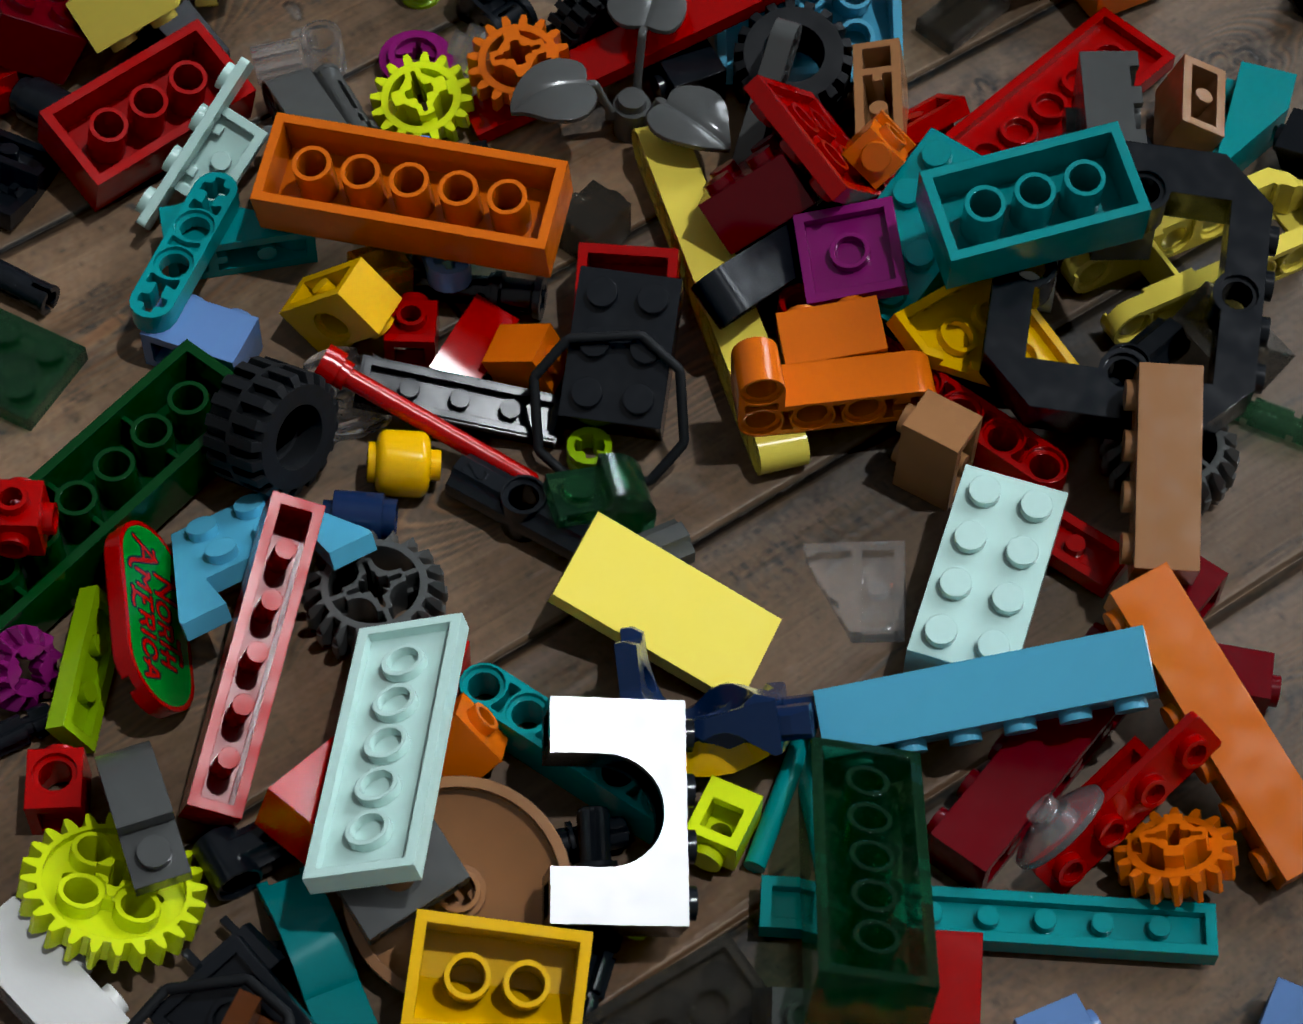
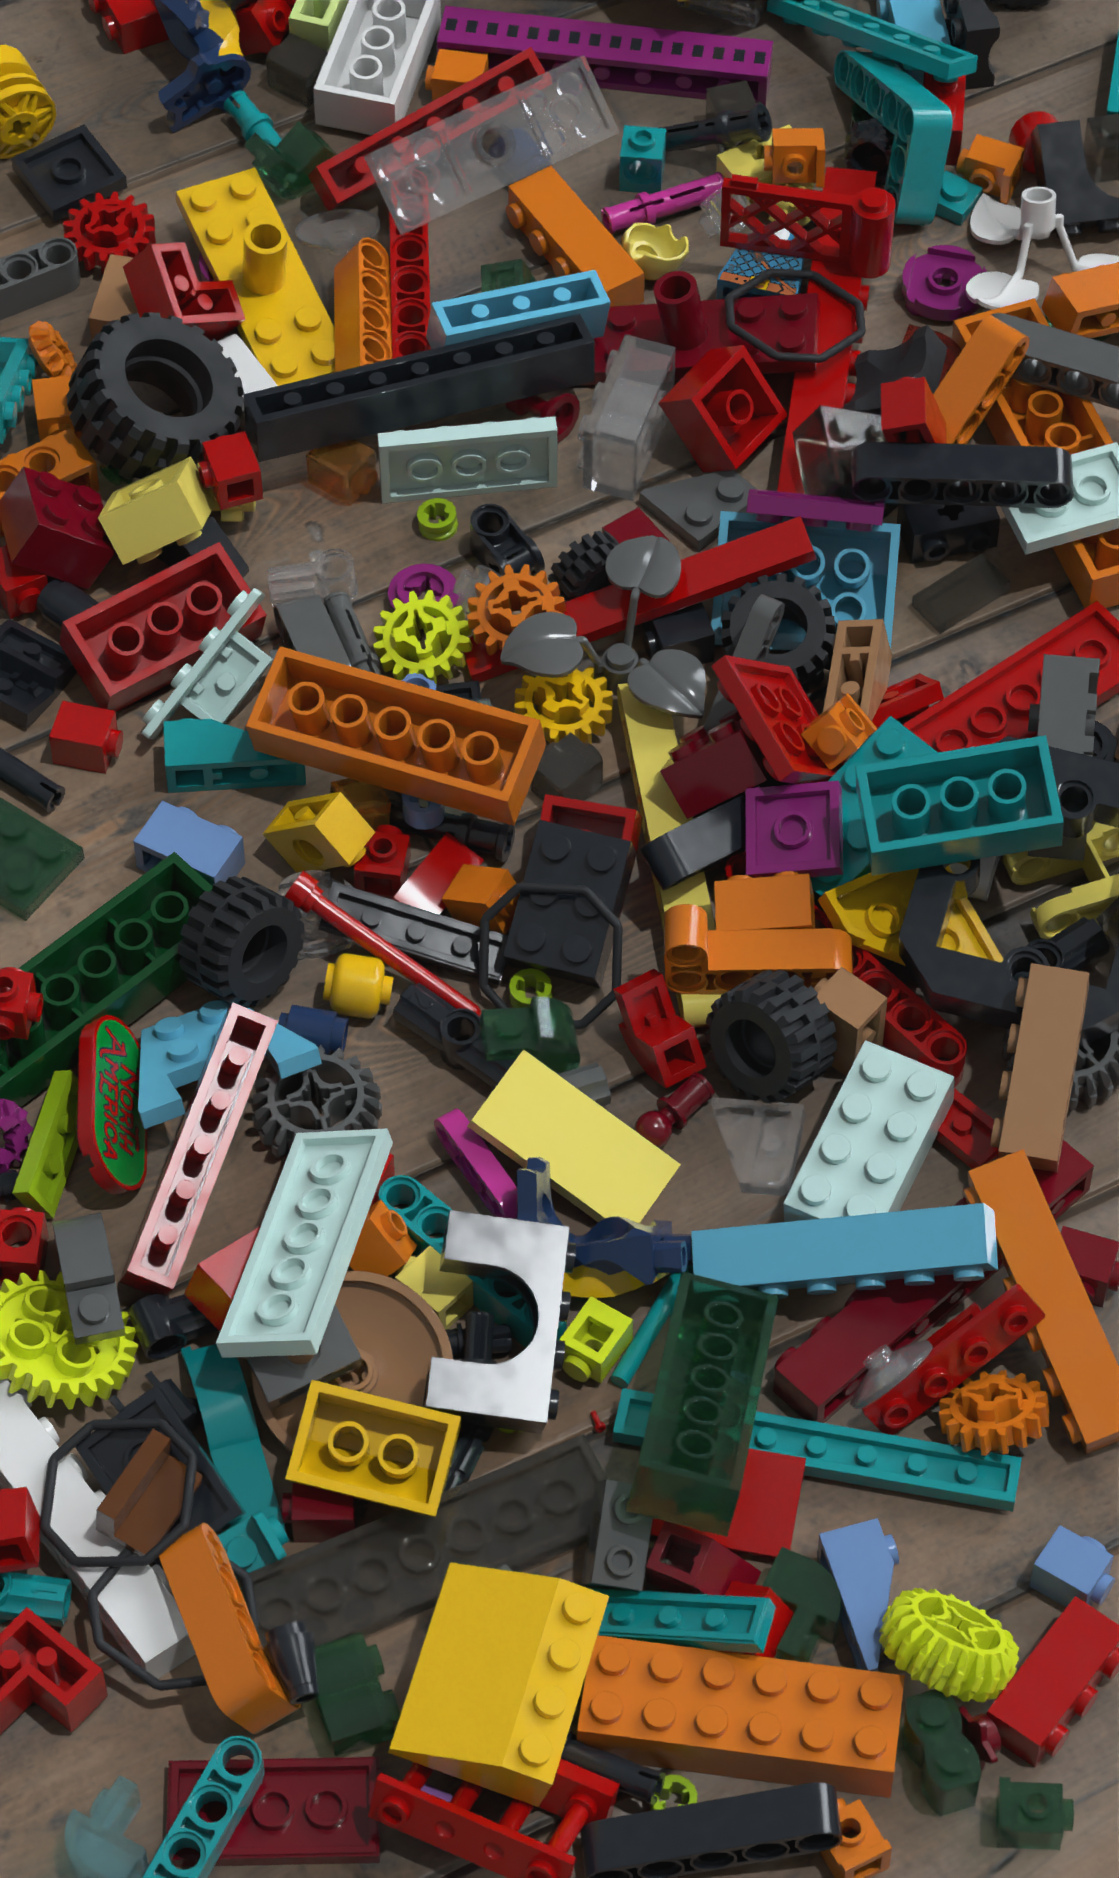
camera: 10 degrees right, 0 degrees up
(75, 233) = (85, 737): none -> red brick
(178, 249) = (189, 770): teal beam -> none
(548, 787) = (445, 1292): none -> light yellow brick
(563, 643) = (477, 1164): none -> dark pink beam
(586, 149) = (565, 704): none -> yellow gear
(732, 484) = (653, 1031): none -> red brick
(740, 921) = (599, 1426): none -> red piece
(765, 561) = (674, 1110): none -> dark red pin
(888, 453) = (771, 1036): none -> black tyre

